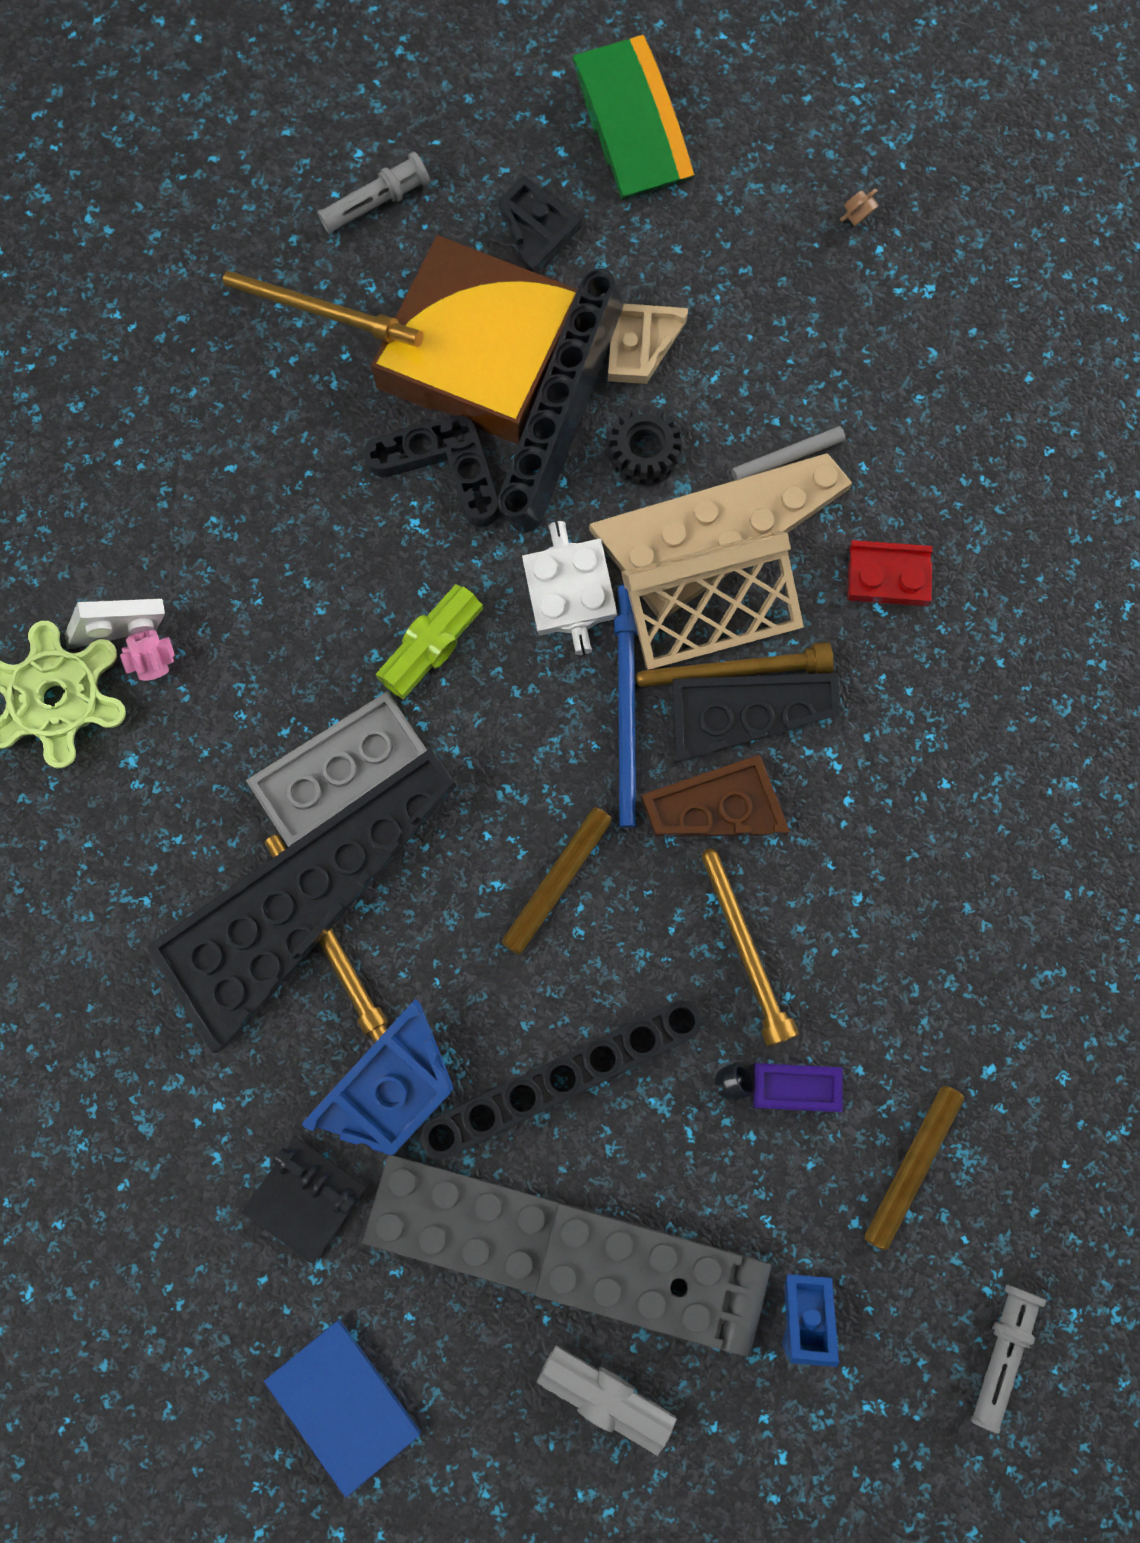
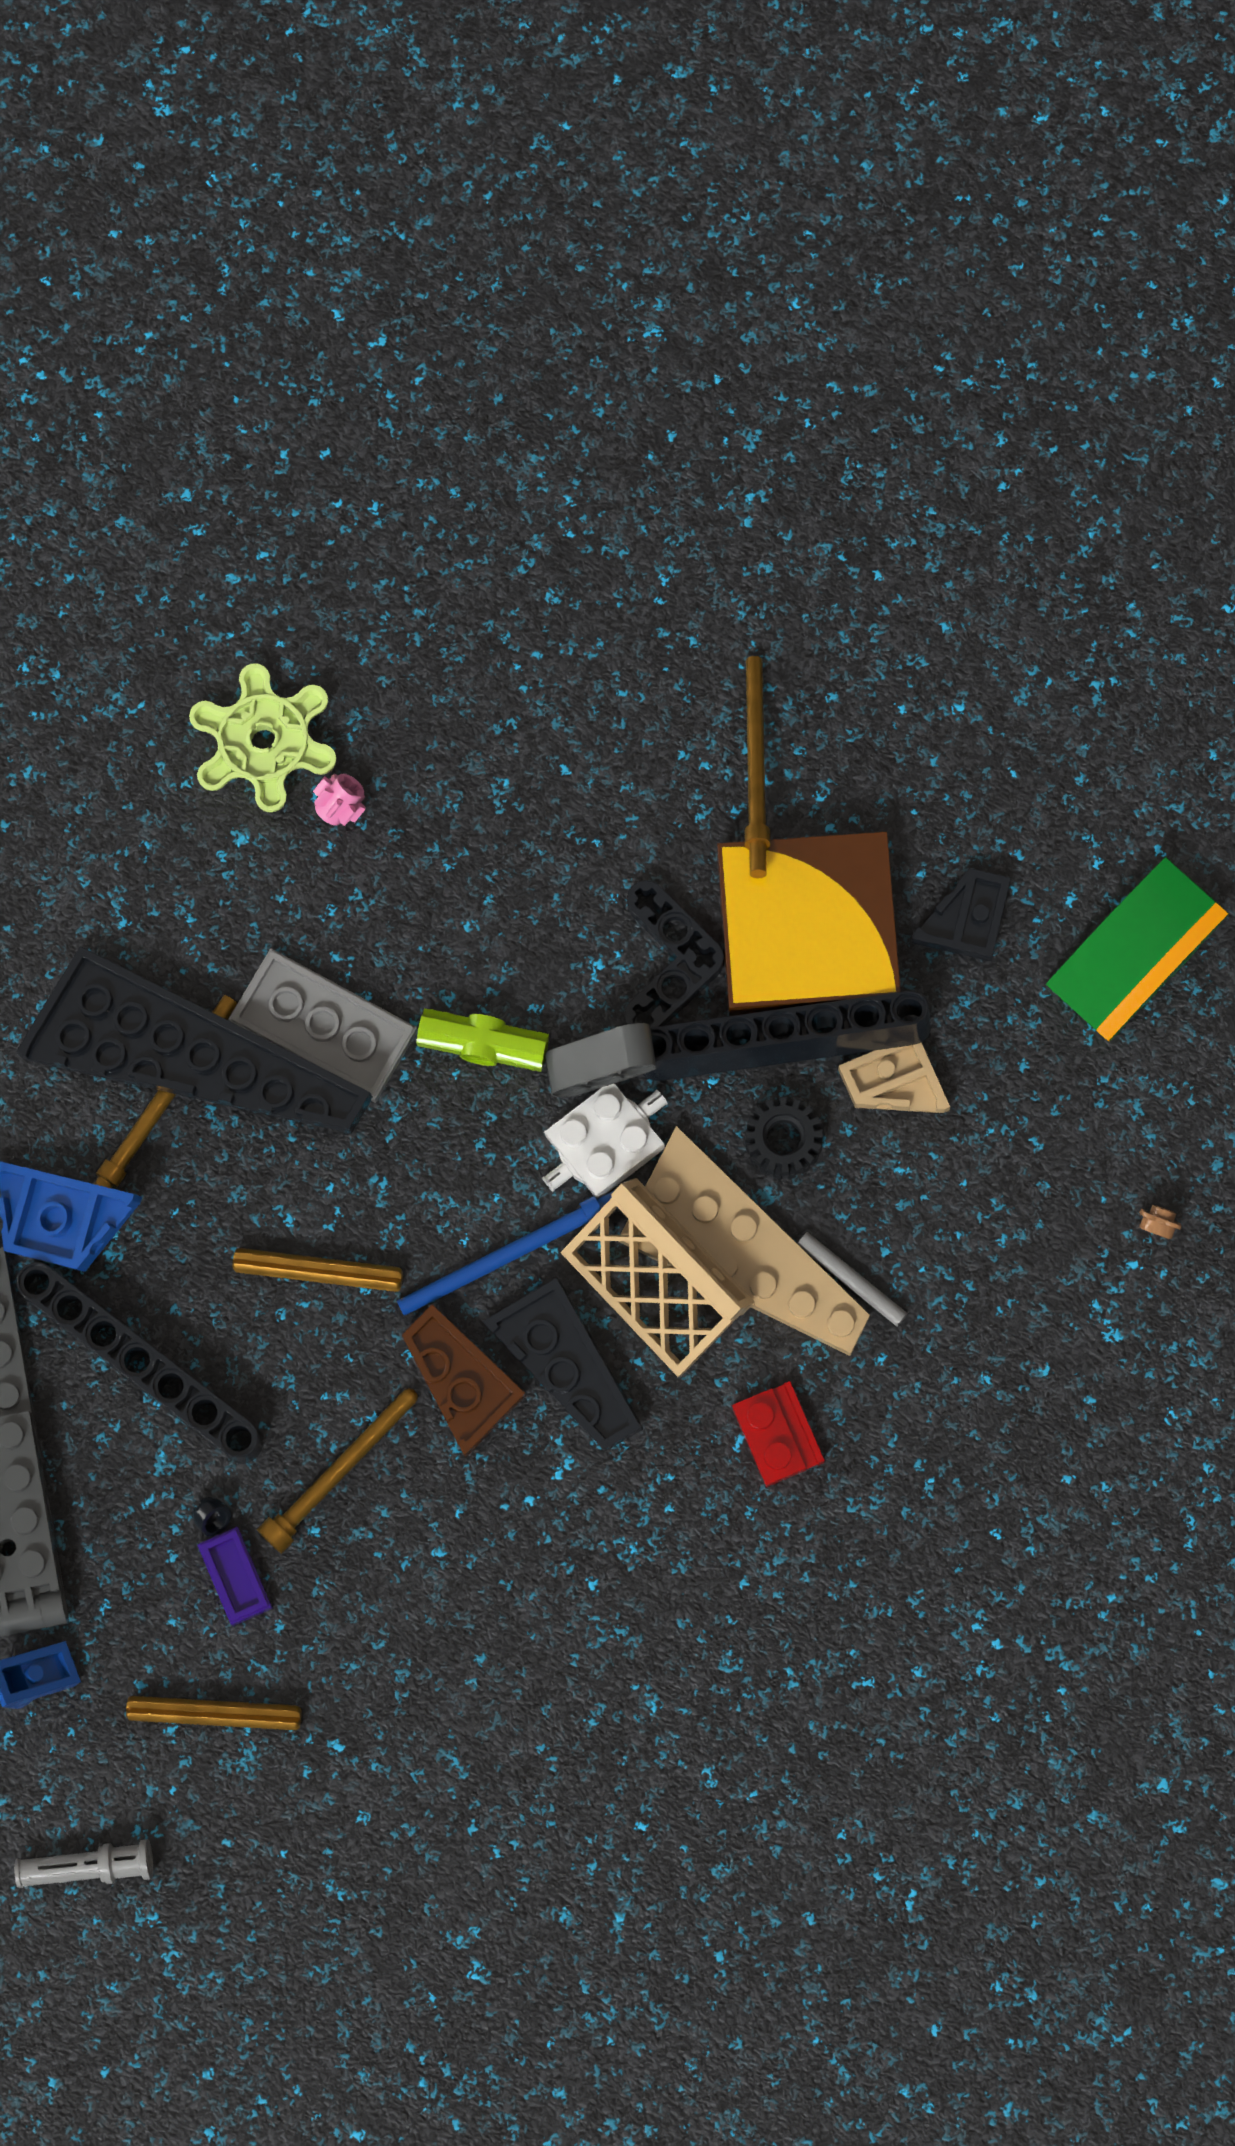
camera: 70 degrees right, 0 degrees up
(112, 620) = (349, 745): white wing -> none
(389, 186) = (932, 757): light grey pin -> none
(505, 547) = (600, 1060): none -> dark grey beam
(814, 659) = (648, 1402): pearl gold piece -> none

